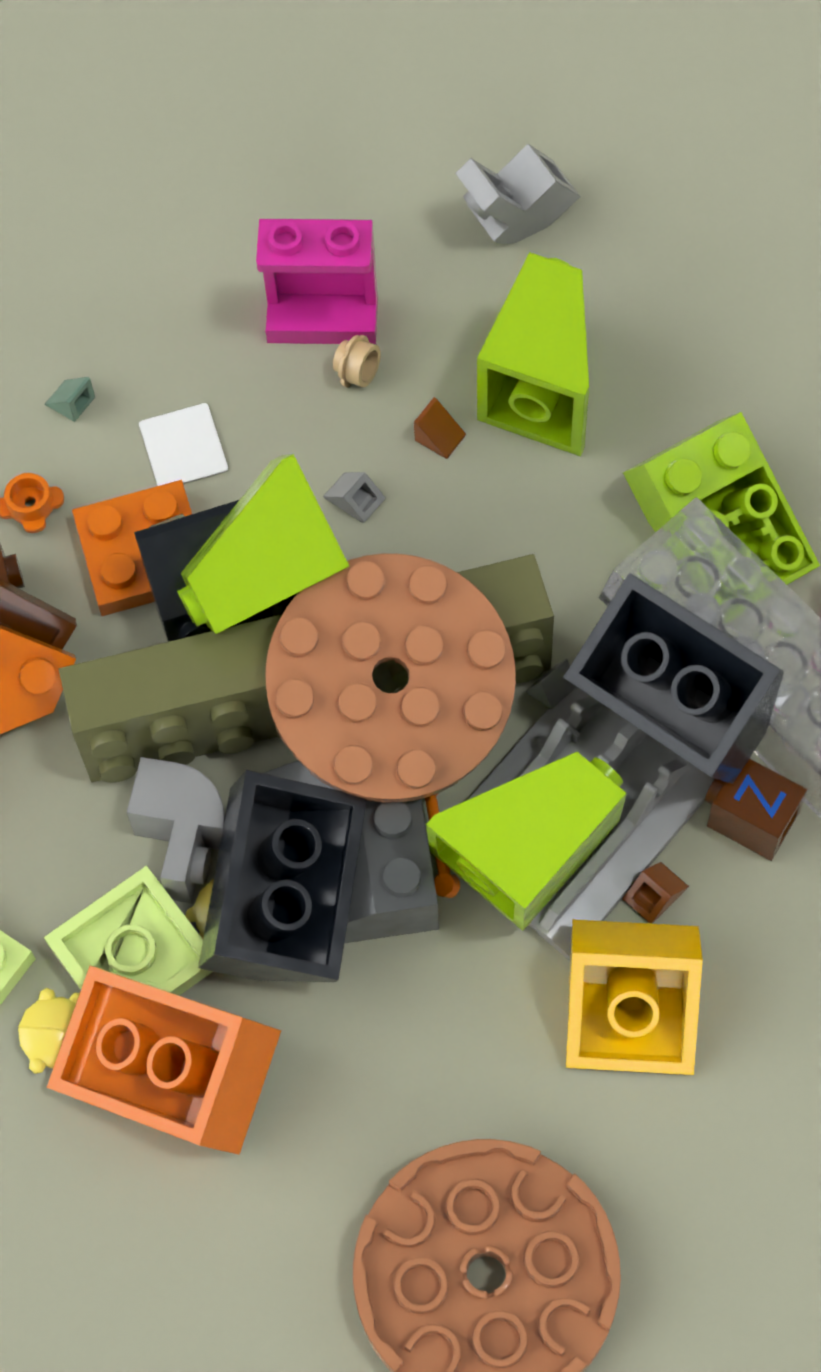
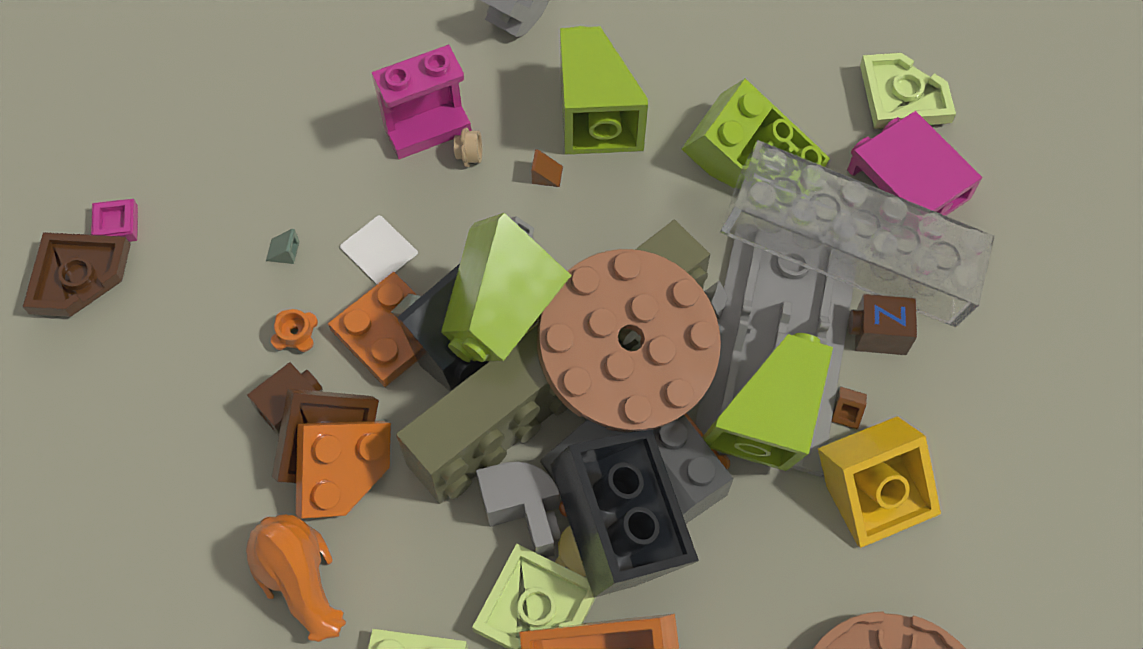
camera: 30 degrees left, 0 degrees up
(678, 679) = (811, 258): black slope -> none

